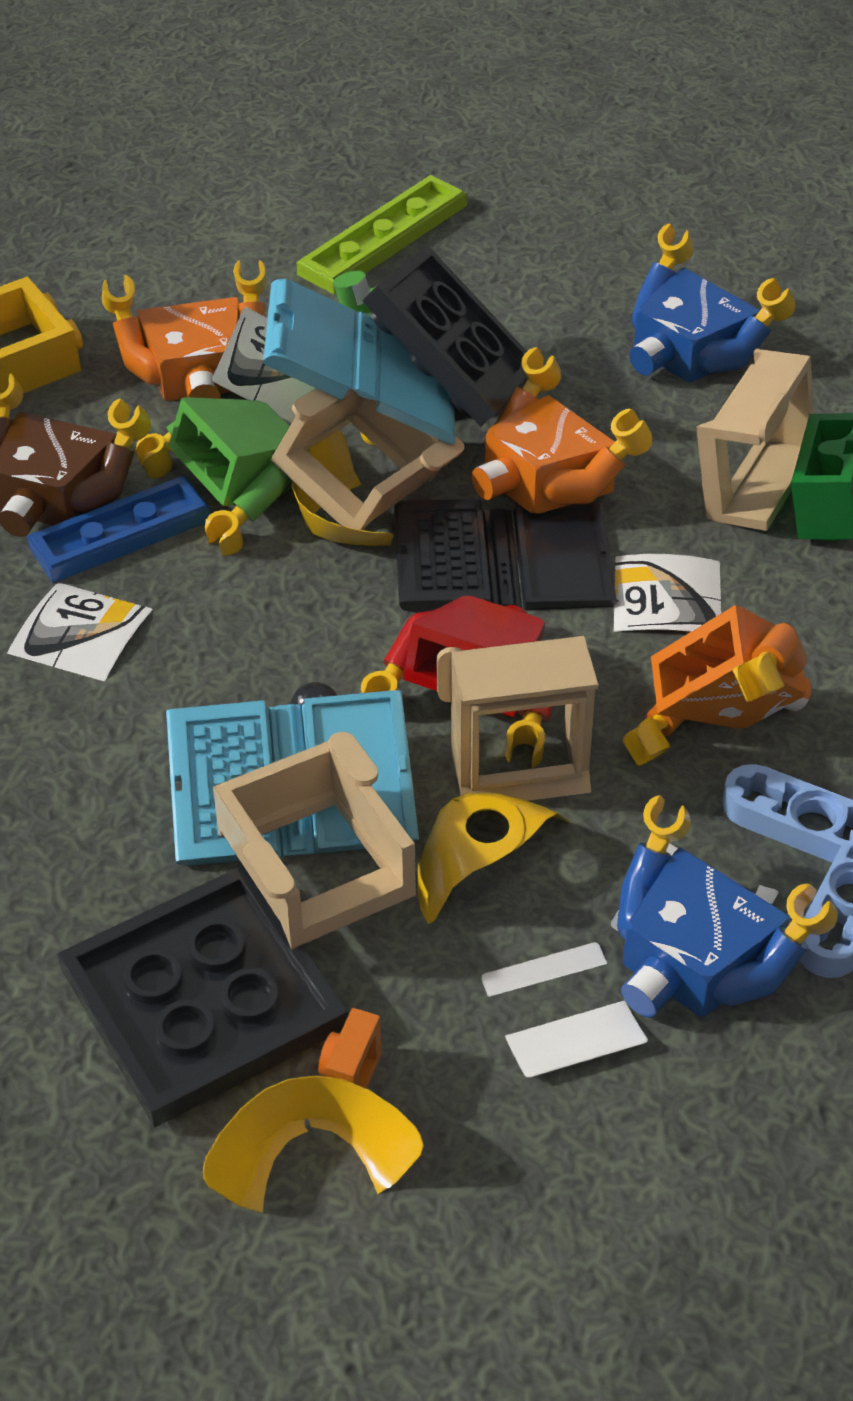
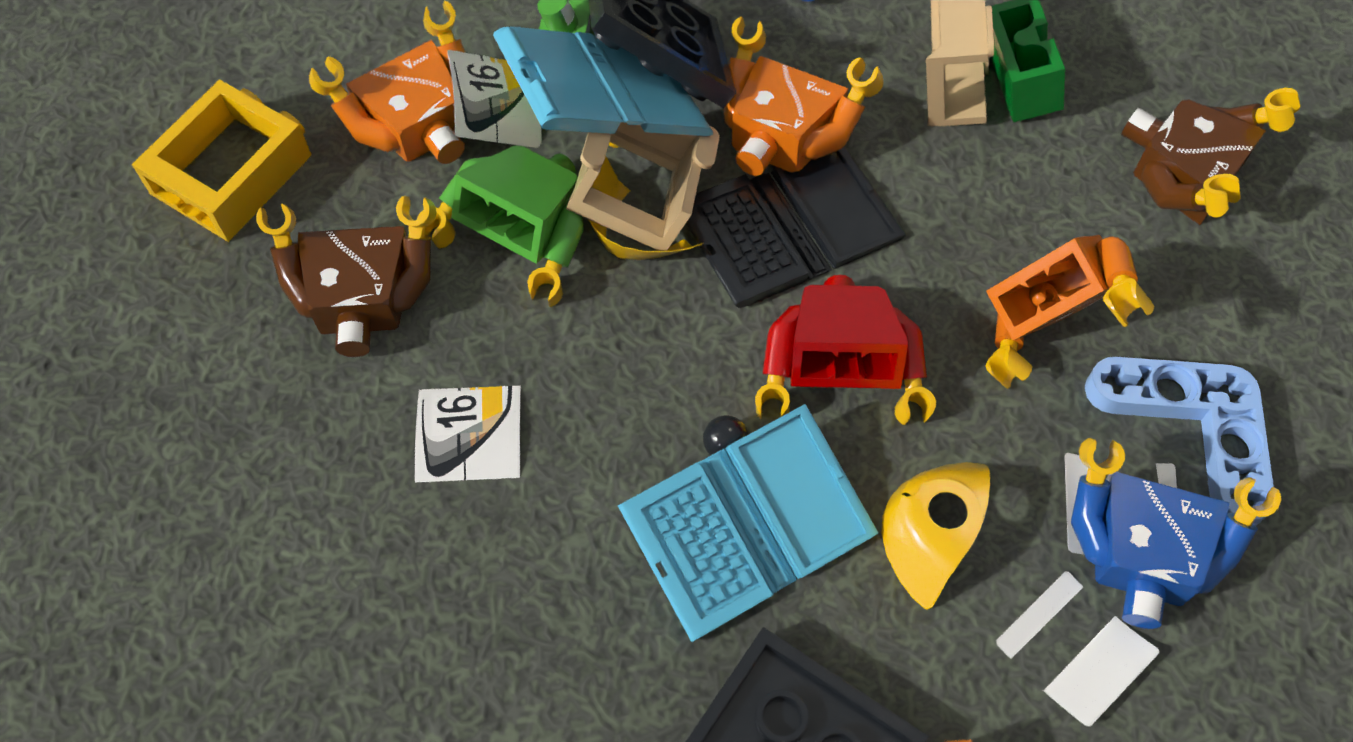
camera: 25 degrees left, 15 degrees up
(118, 528) = (444, 315): blue tile -> none
(298, 787) = (832, 525): tan piece -> none
(516, 680) = (945, 372): tan piece -> none
(665, 592) = (938, 212): sticker -> none

